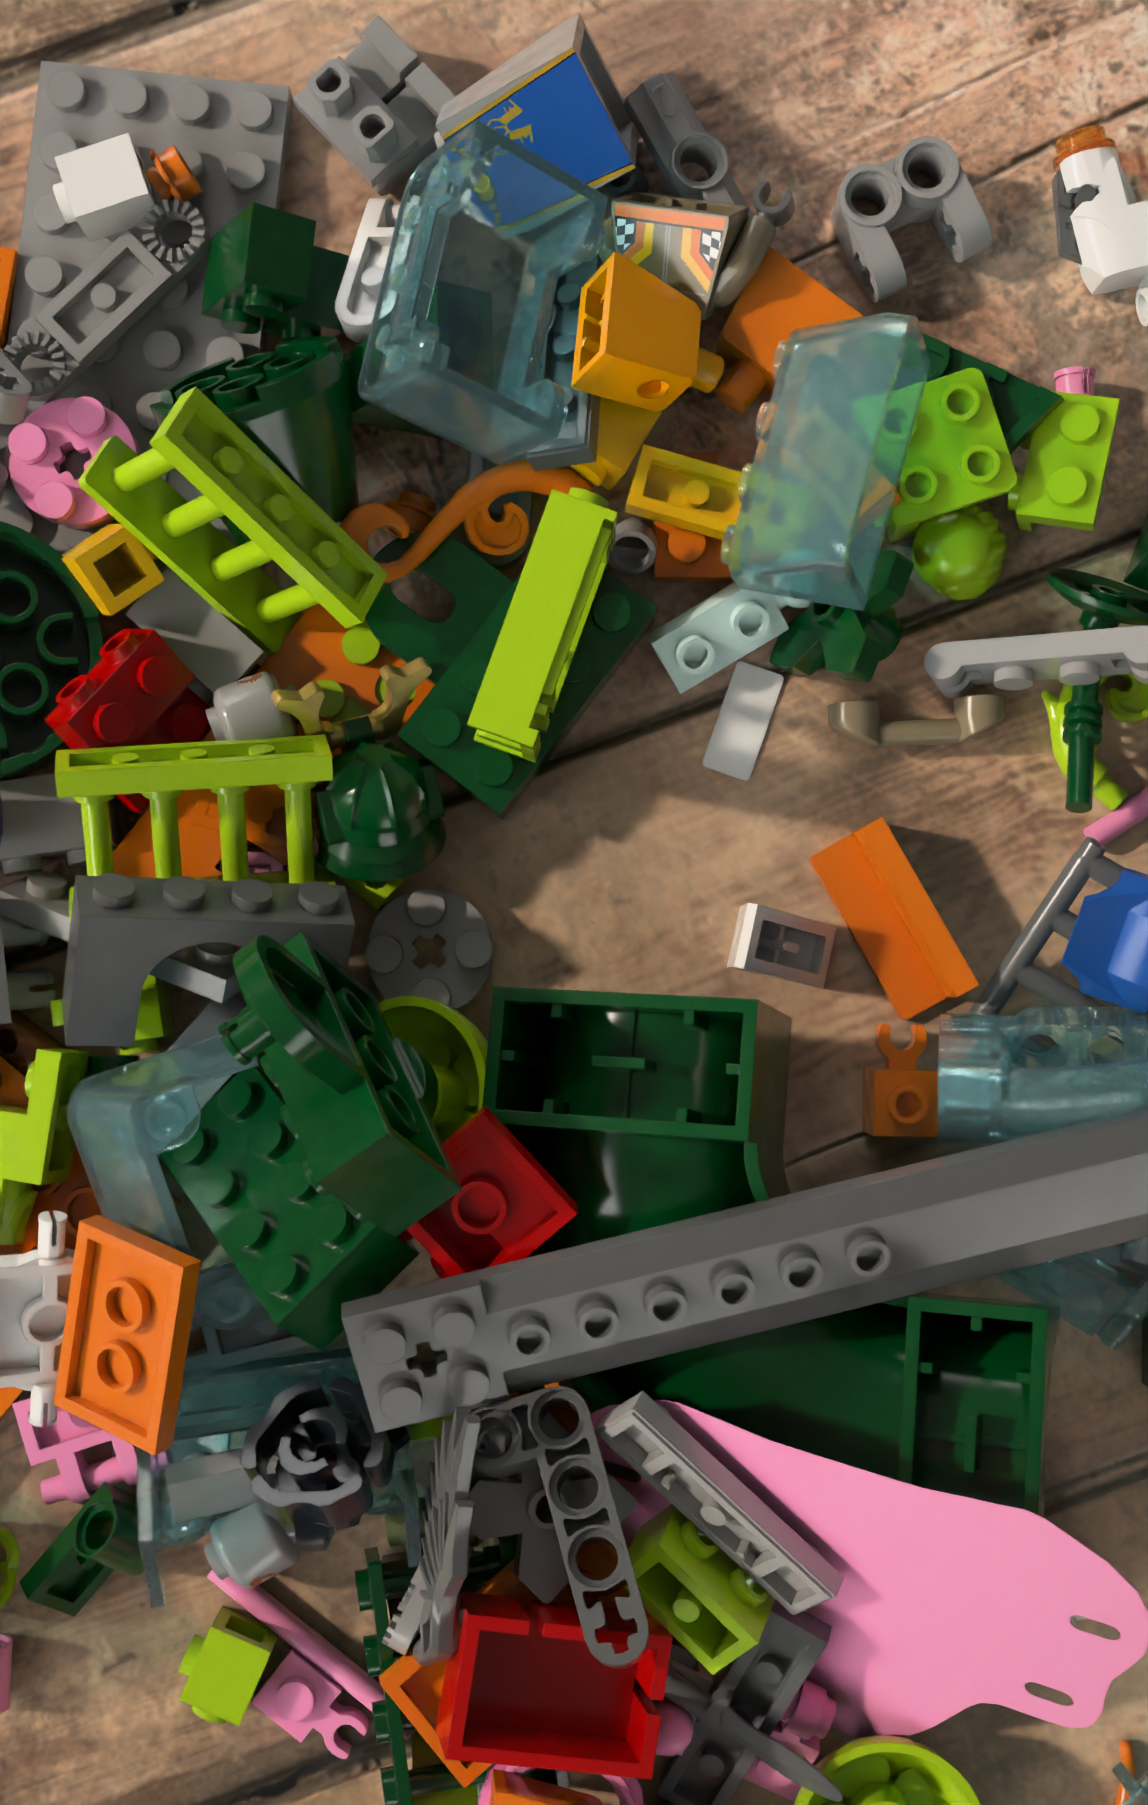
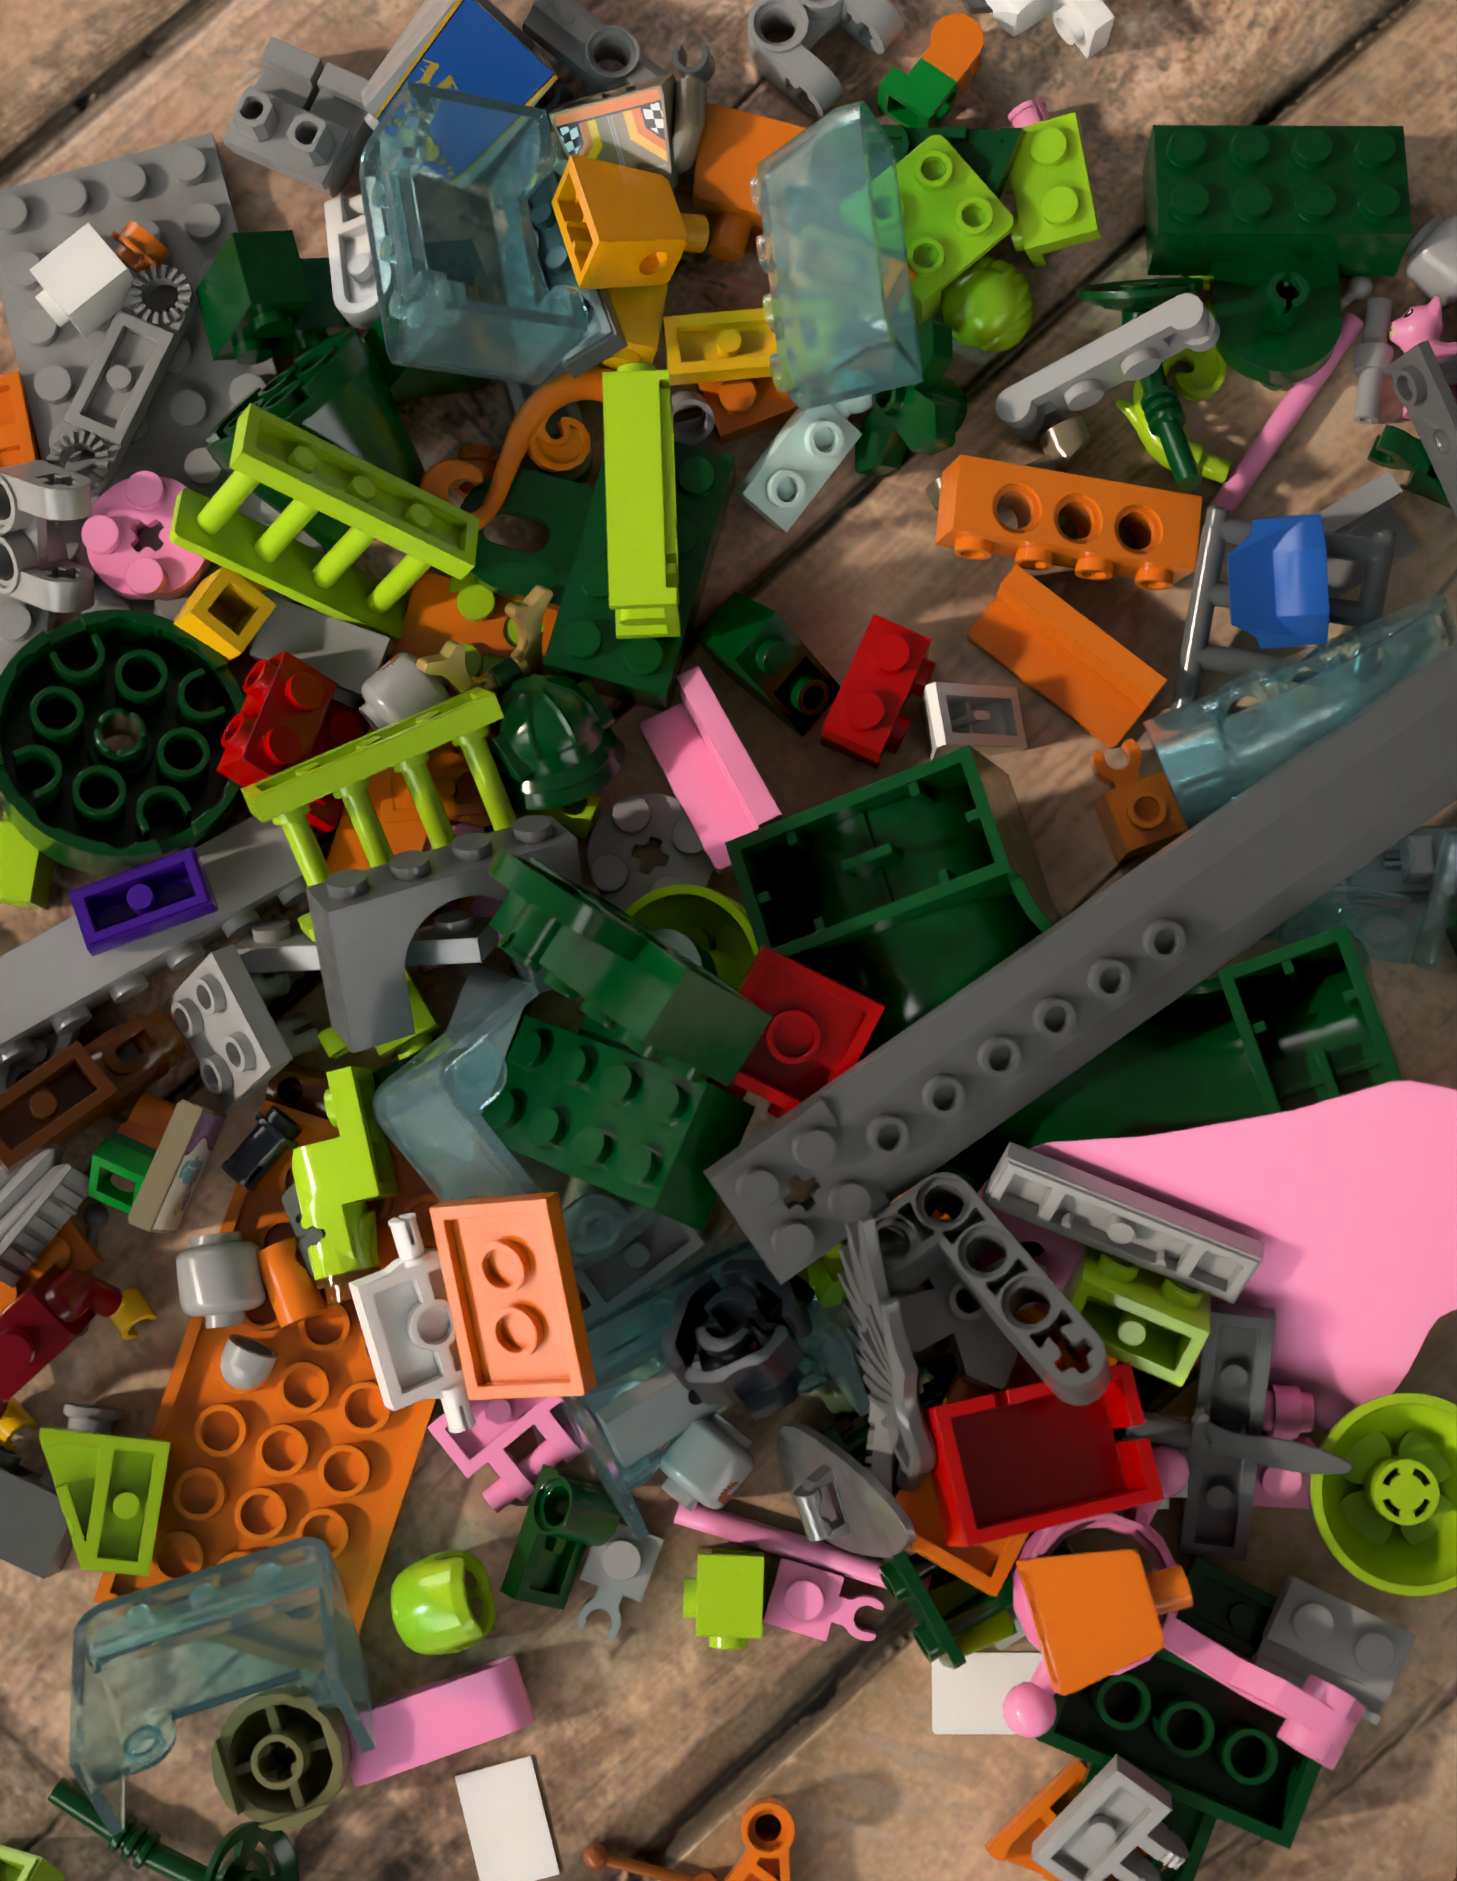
camera: 15 degrees left, 5 degrees down
(132, 1607) = (619, 1570): none -> light grey plate
(358, 1635) = (840, 1496): none -> flat silver shield
(514, 900) = (709, 769): none -> bright pink panel
(613, 813) = (769, 661): none -> dark green slope
(702, 882) = (877, 686): none -> red brick
(743, 720) = (853, 536): white sticker -> none
(1004, 308) = (937, 78): none -> leg
(1037, 829) = (1160, 519): none -> orange brick

